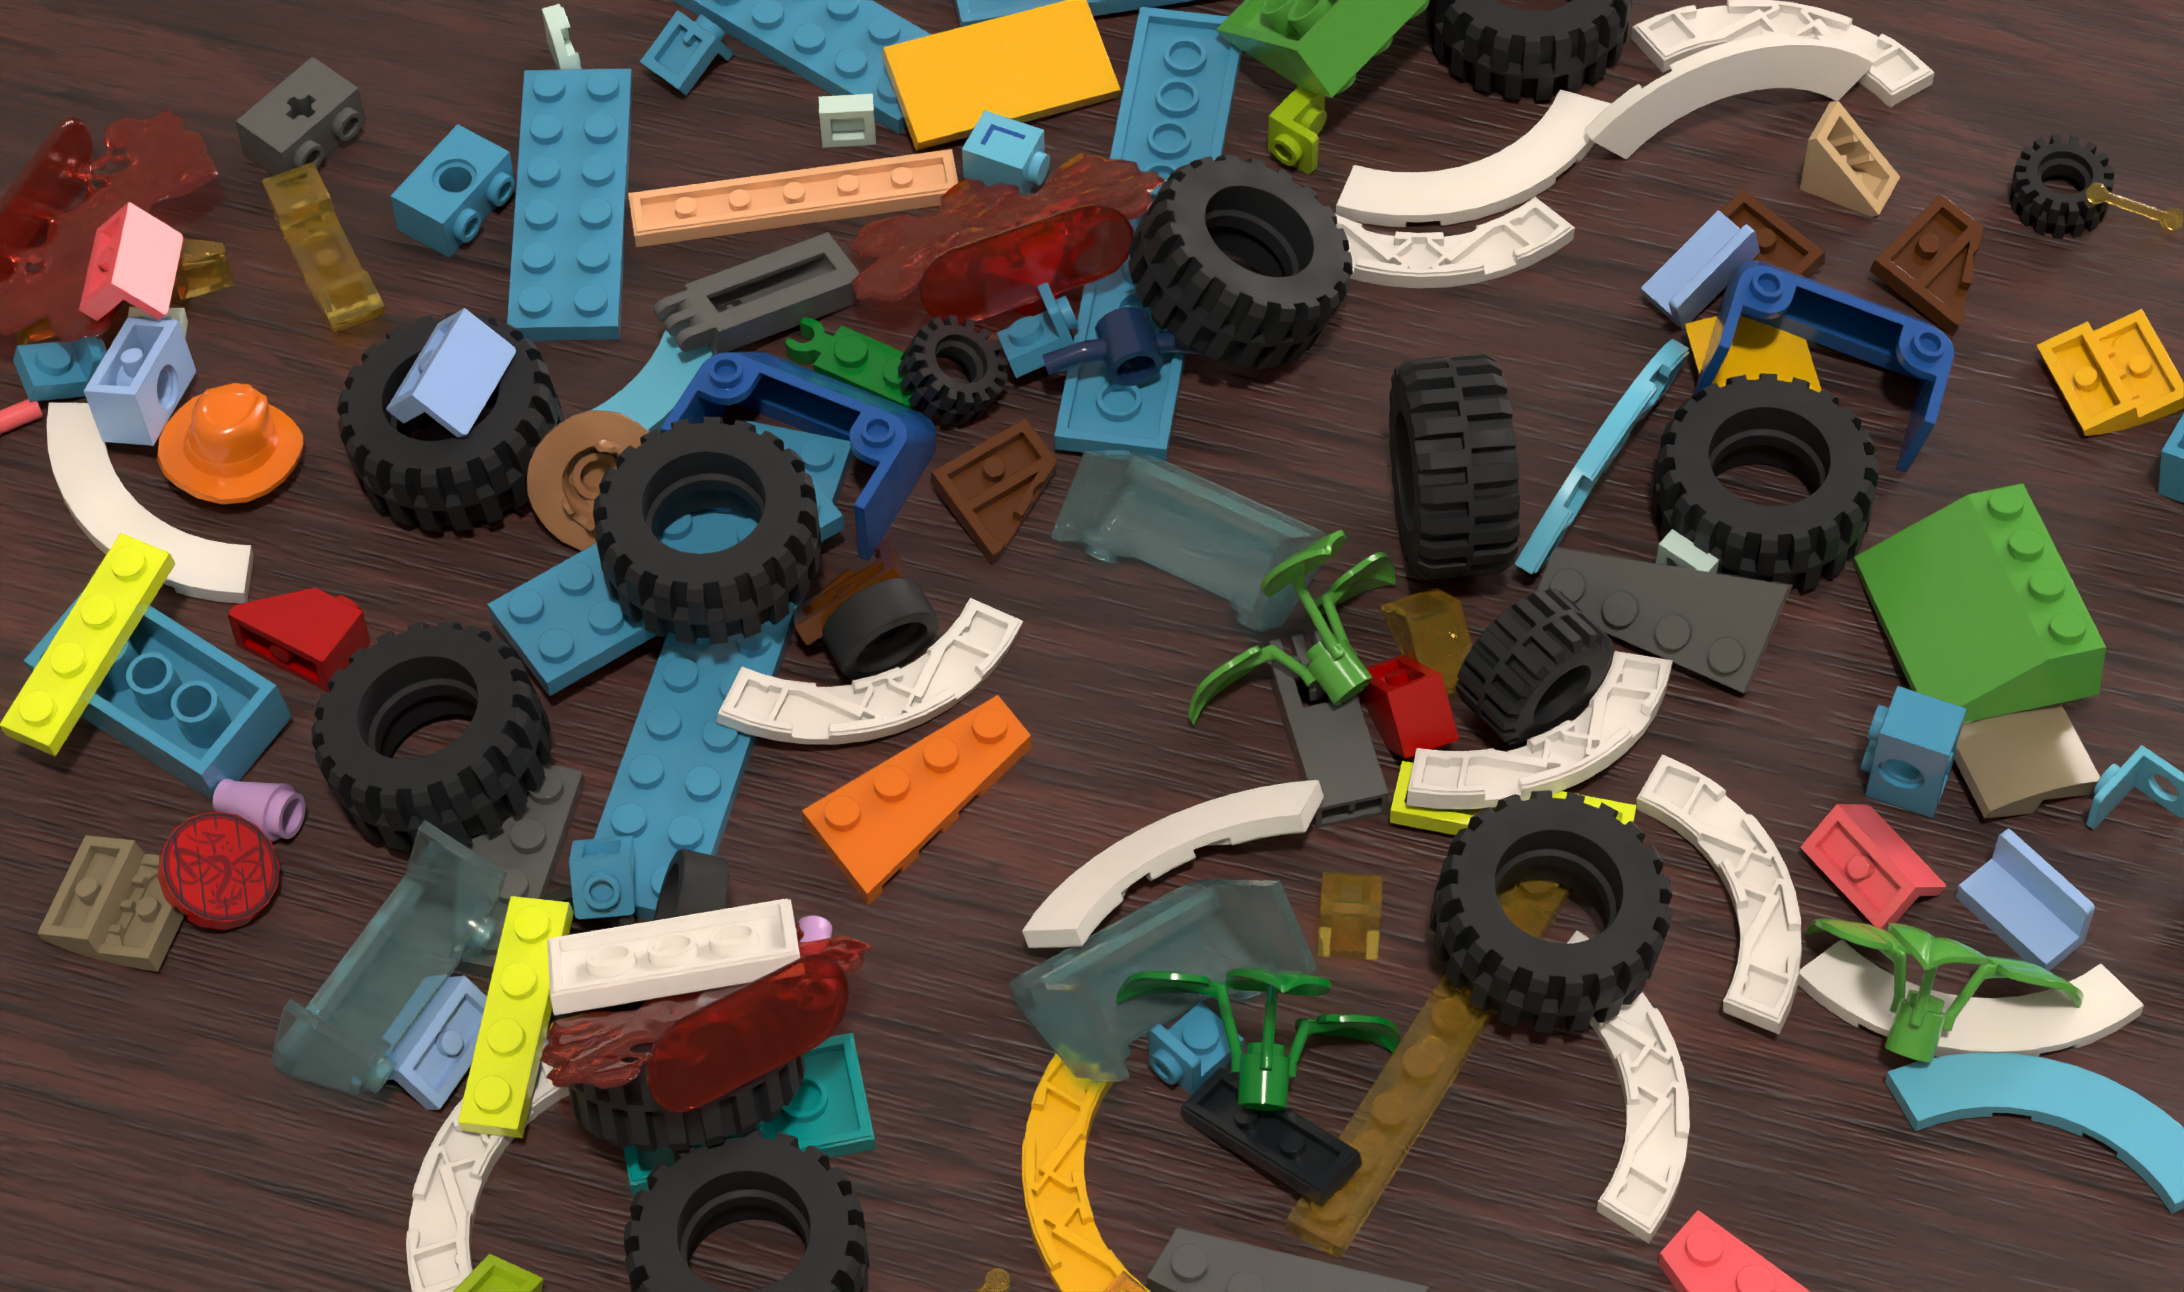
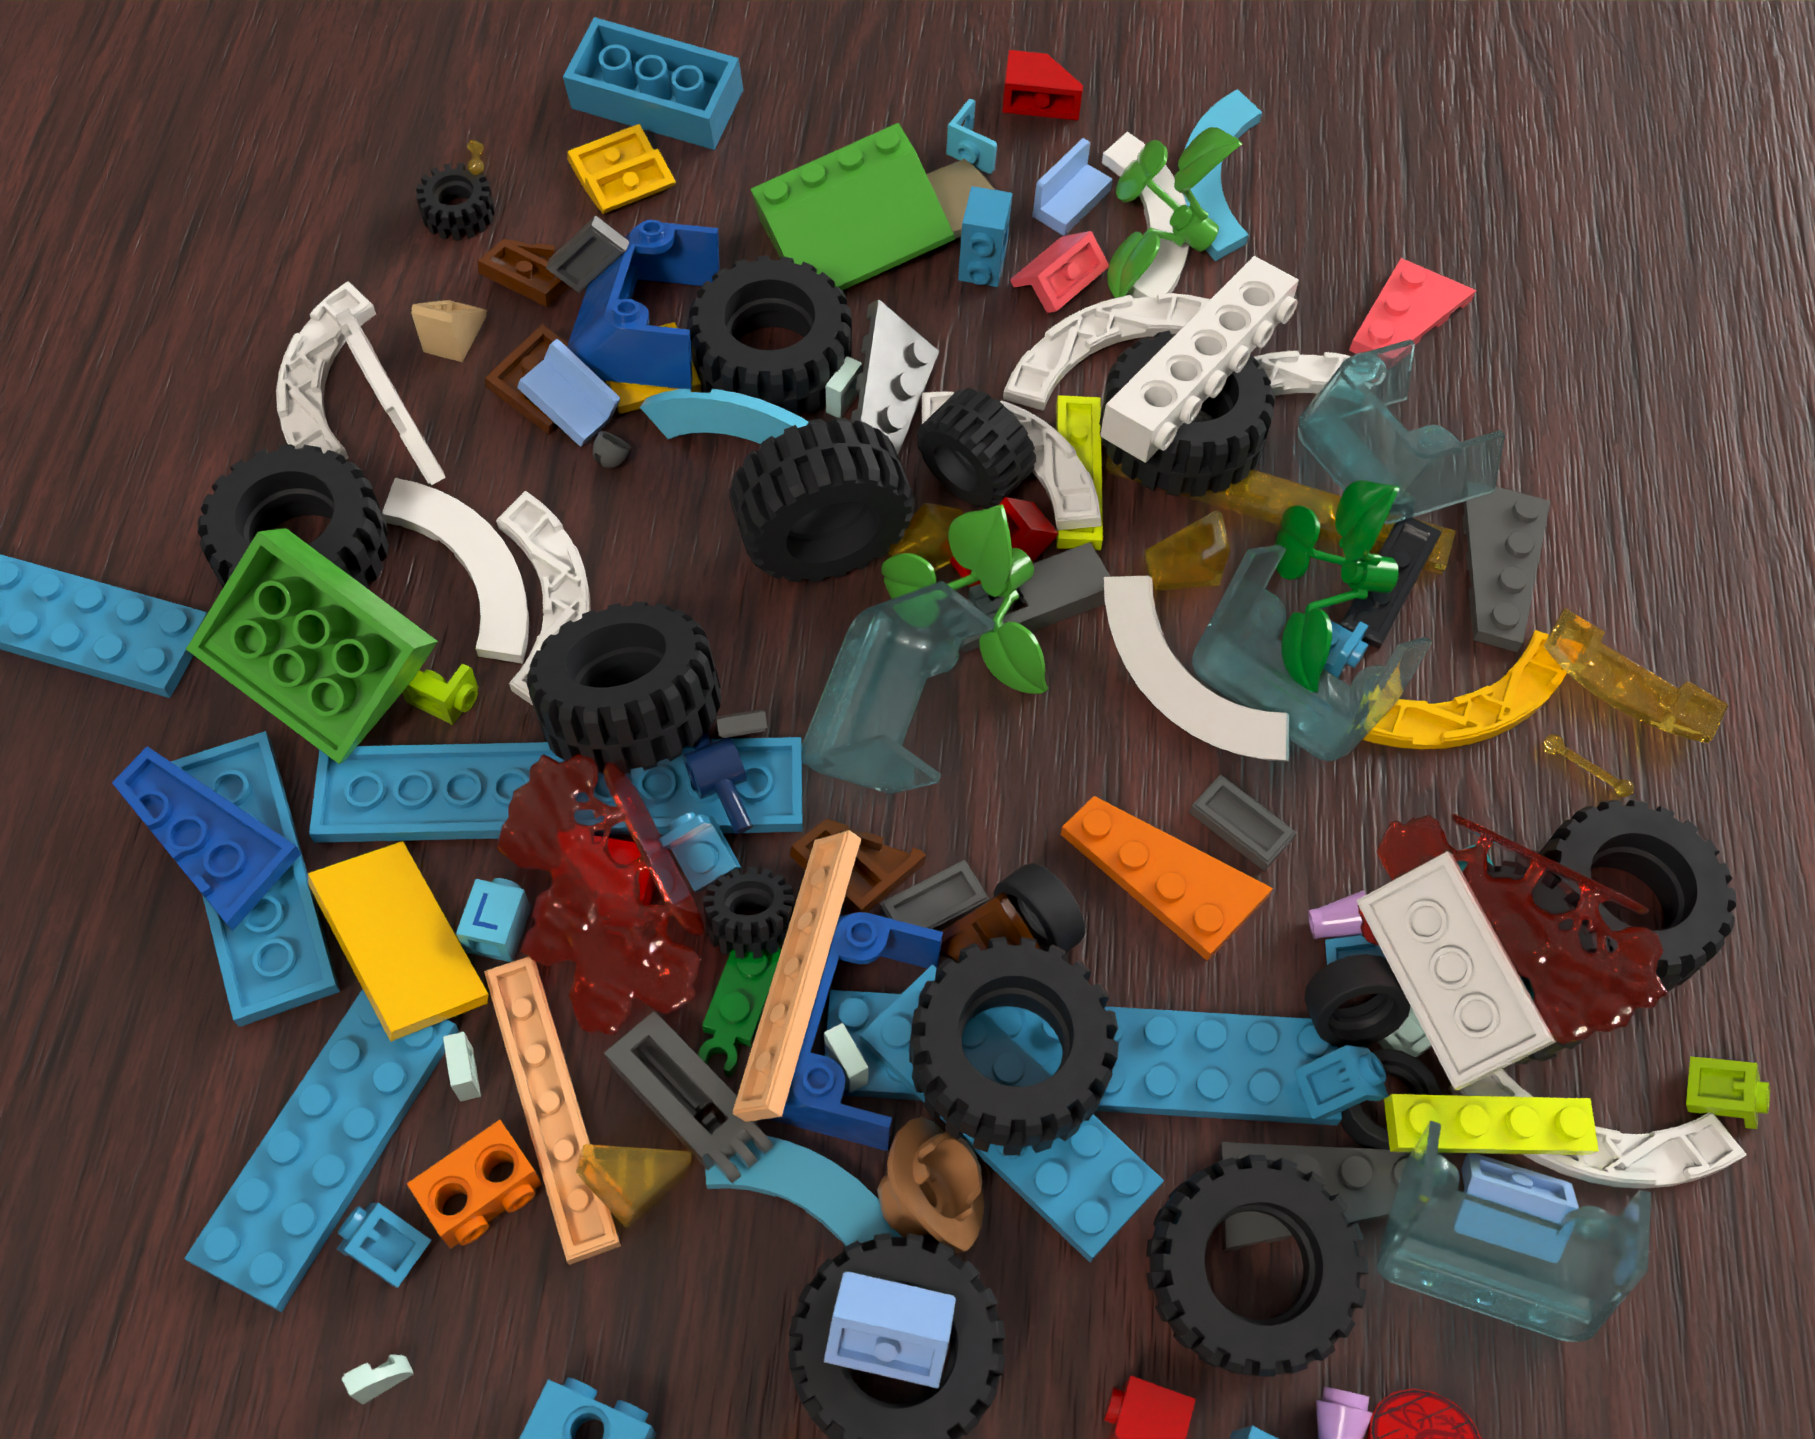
camera: 105 degrees left, 5 degrees up
(571, 204) = (575, 1320): dark azure plate -> none
(684, 233) = (630, 1177): none -> clear yellow slope
(721, 123) = (468, 1173): none -> orange brick
(761, 409) = (844, 1051): none -> light aqua tile
(857, 380) = (796, 978): none -> light nougat tile
(877, 703) = (1108, 925): white tile -> none
(935, 558) = (938, 899): none -> dark grey tile
(965, 892) = (1242, 822): none -> dark grey tile
(1186, 381) = (741, 723): none -> dark grey tile
(1413, 1133) = (1363, 440): none -> clear light blue windscreen
(1583, 854) = (1199, 359): none -> white brick
(1631, 310) = (610, 450): none -> dark grey hinge
(1907, 285) = (587, 254): none -> dark grey tile

